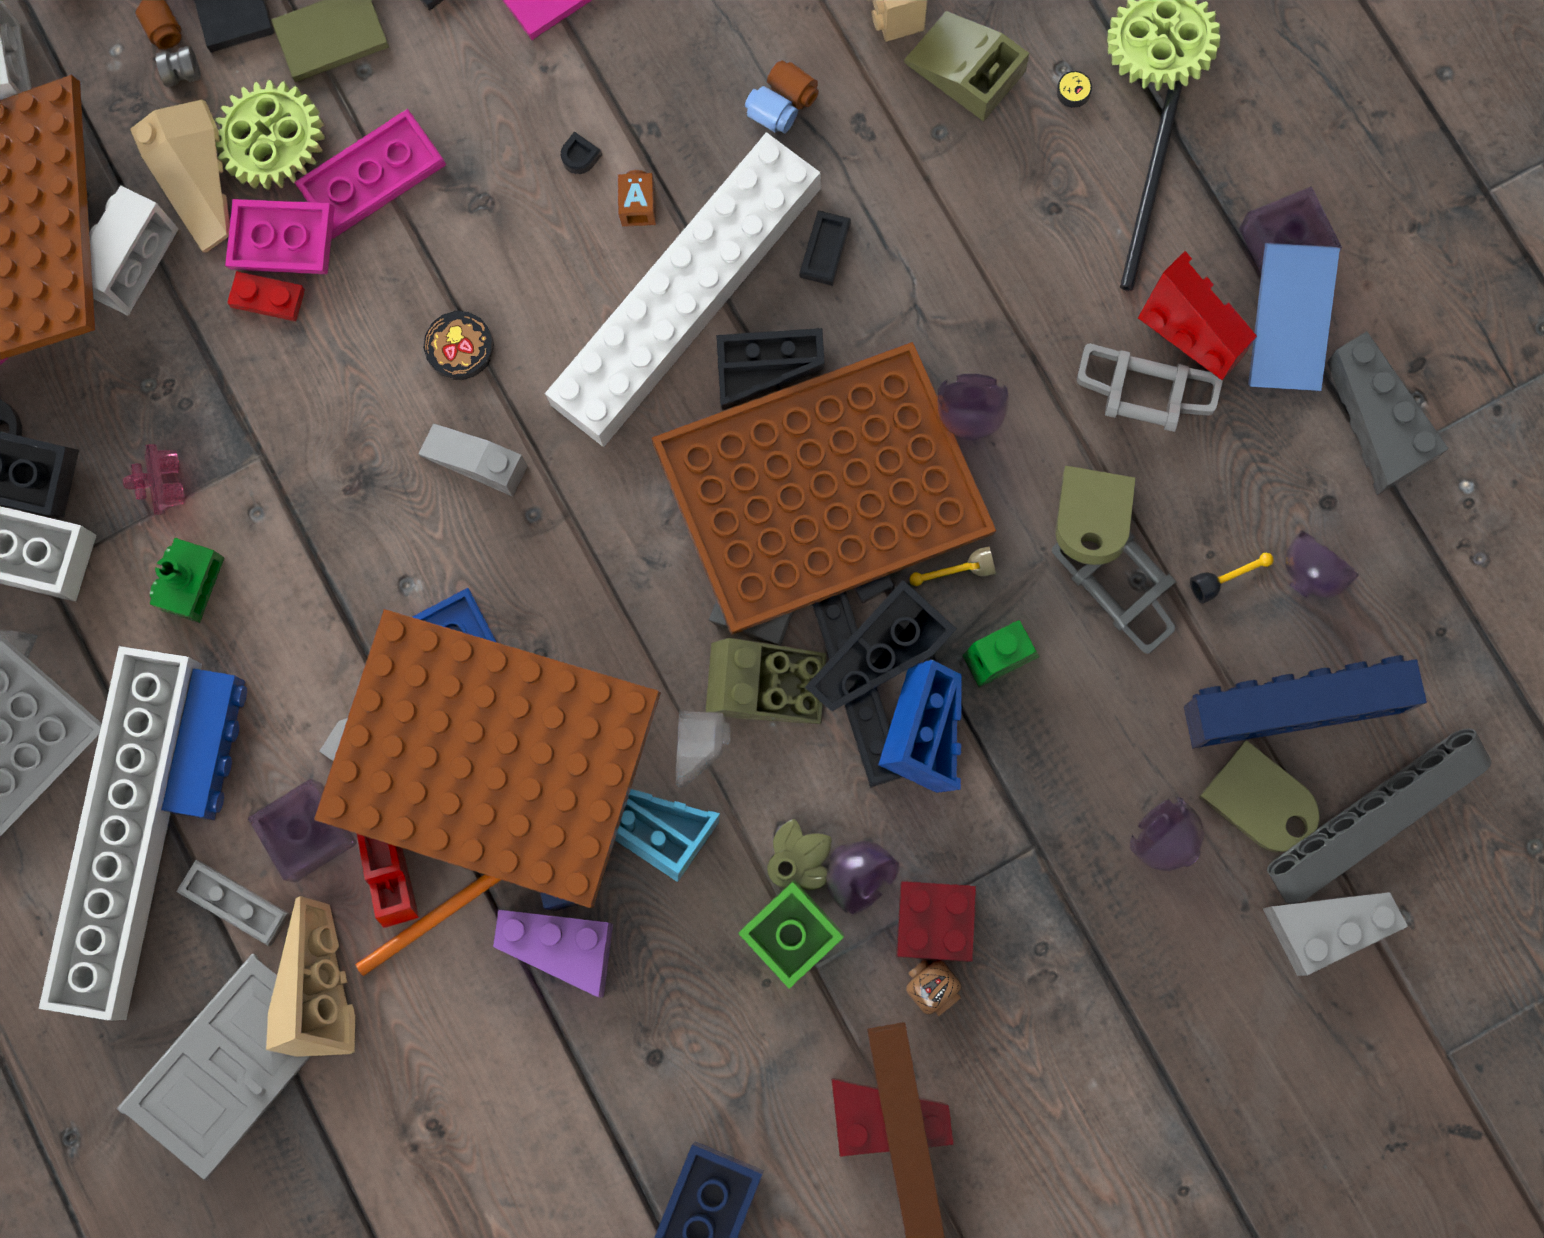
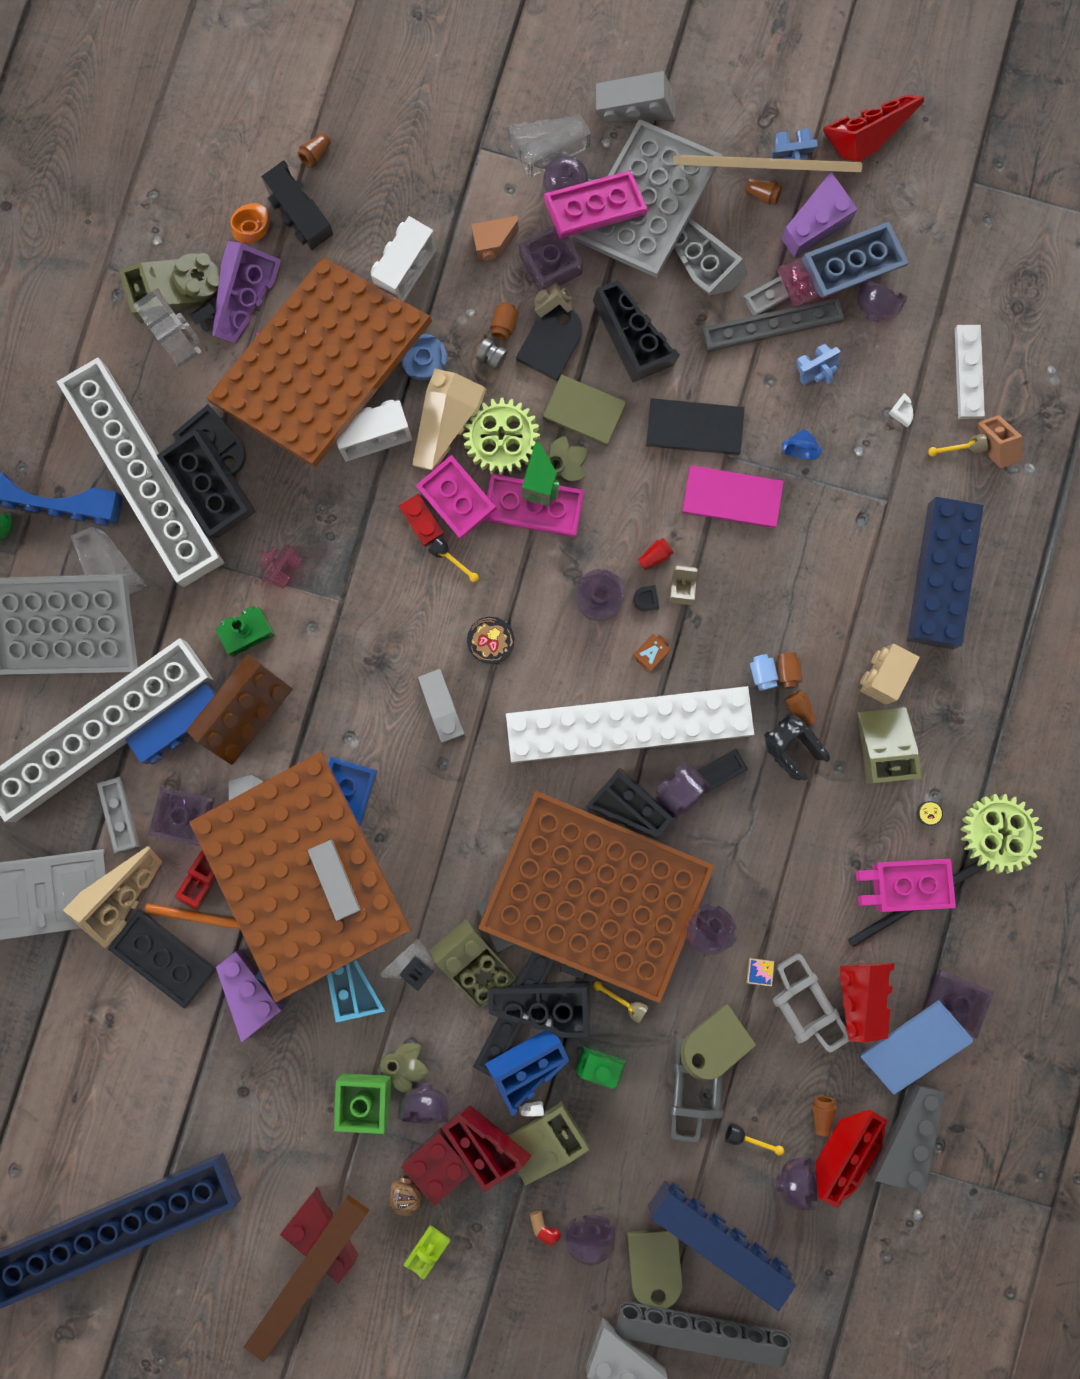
camera: 35 degrees right, 5 degrees up
(109, 137) = (424, 357): none -> medium blue tile
(257, 658) = (239, 710): none -> reddish brown brick
(314, 305) = (440, 549): none -> hinge
(349, 129) = (540, 479): none -> green slope
(360, 95) = (568, 458): none -> olive plate
(428, 1005) = (162, 958): none -> black tile
(527, 717) = (334, 880): none -> light grey tile
(542, 190) = (606, 583): none -> clear purple brick
(545, 98) = (656, 554): none -> red cone
(602, 102) = (683, 585): none -> dark tan bracket
(713, 741) = (416, 972): none -> black tile
(804, 296) = (682, 790): none -> clear purple brick
(841, 108) = (800, 706): none -> dark orange cone
(878, 128) = (783, 734): none -> black piece
(964, 851) = (484, 1147): none -> dark red wedge
(974, 767) = (531, 1109): none -> white tile
(1013, 1021) = (427, 1252): none -> lime hips
(1023, 787) = (551, 1142): none -> olive slope
(1065, 403) = (760, 972): none -> tile
(1112, 882) = (542, 1232): none -> arm
(1125, 174) = (909, 885): none -> dark pink tile
(1272, 478) = (823, 1112): none -> dark orange cone
(1337, 487) = (849, 1156): none -> red wedge

